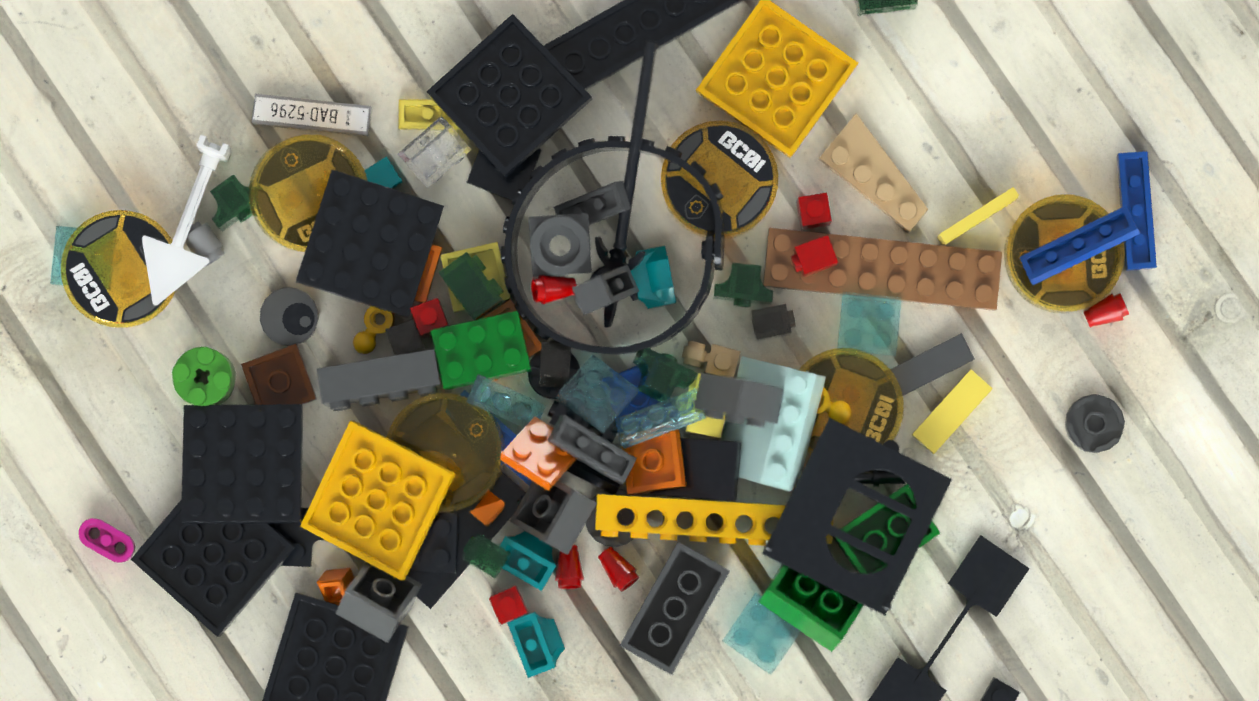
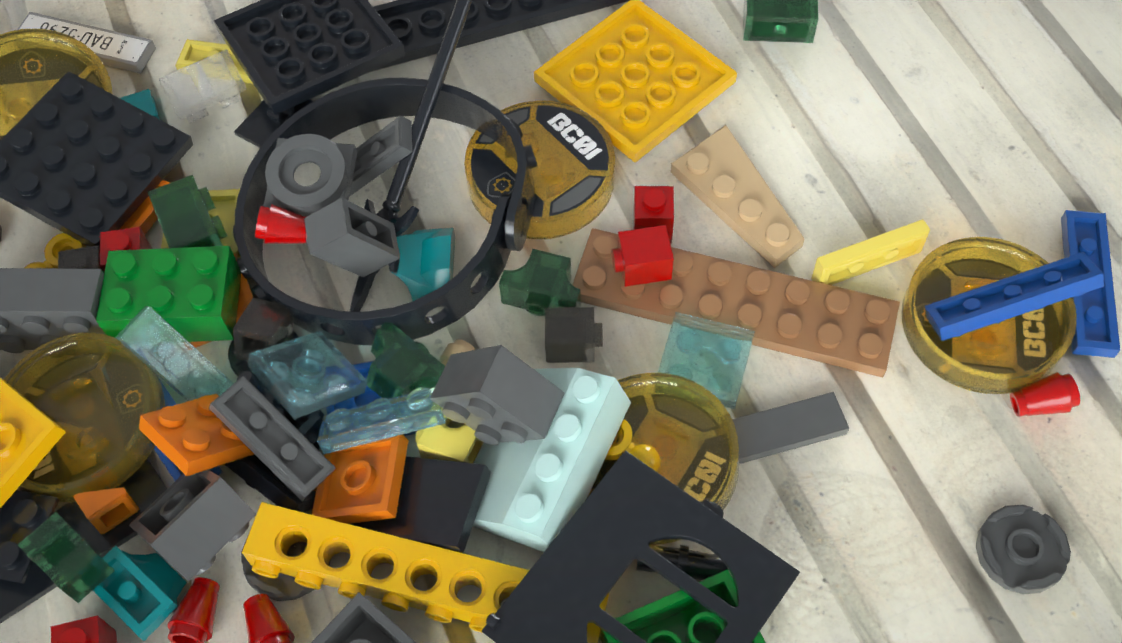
camera: 10 degrees right, 25 degrees down
(952, 411) = (807, 495): light yellow tile -> none

